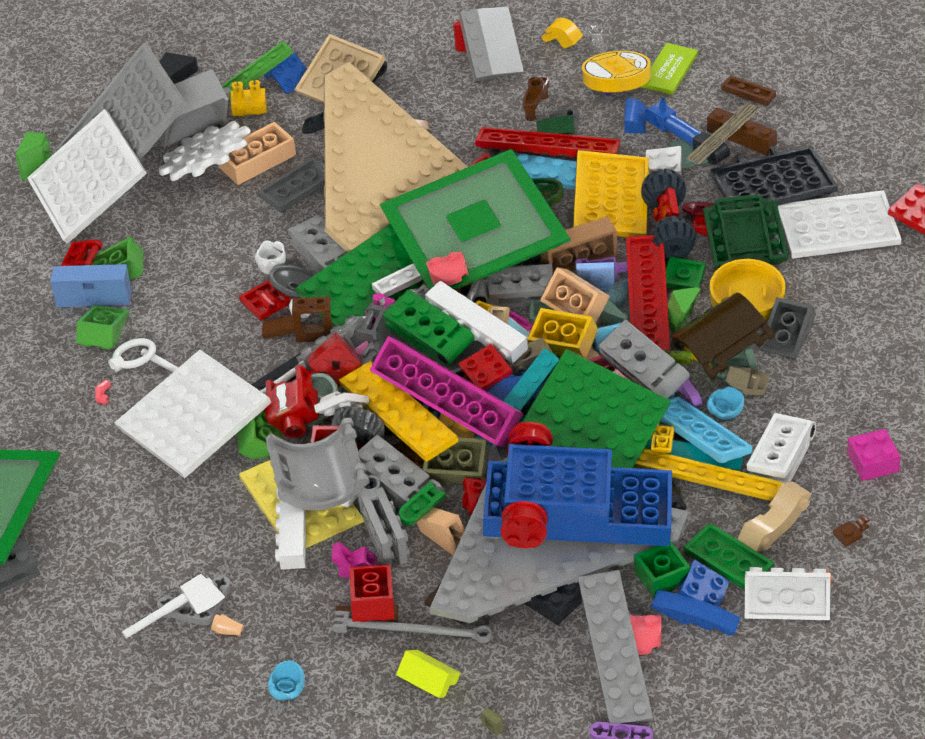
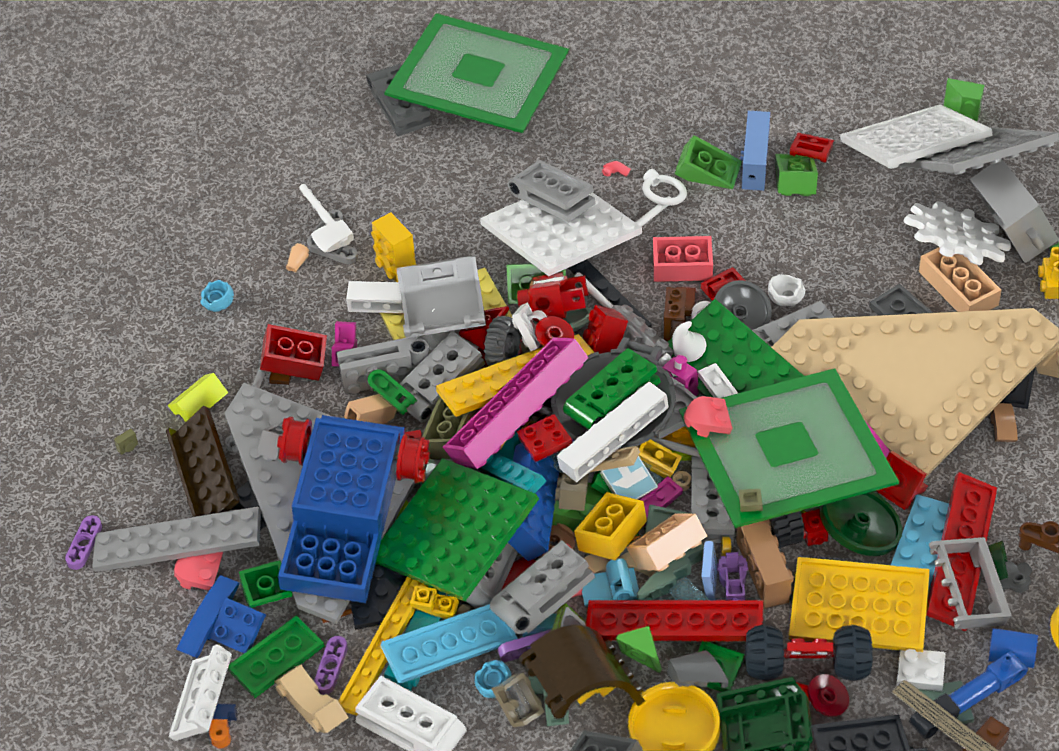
camera: 95 degrees right, 5 degrees up
(154, 412) = (553, 190): none -> light grey hinge
(230, 528) = (392, 245): none -> yellow brick
(231, 327) = (682, 258): none -> coral brick
(350, 302) = (688, 343): none -> white hat
(351, 383) = (553, 327): none -> red dish
(508, 561) = (268, 442): none -> light grey slope
(522, 643) = (202, 465): none -> dark brown bracket
(546, 226) = (750, 500): none -> olive plate
(604, 125) = (981, 558): none -> light grey hinge
(697, 274) = (696, 670): none -> dark grey slope
(734, 513) = (329, 656): none -> medium lavender beam

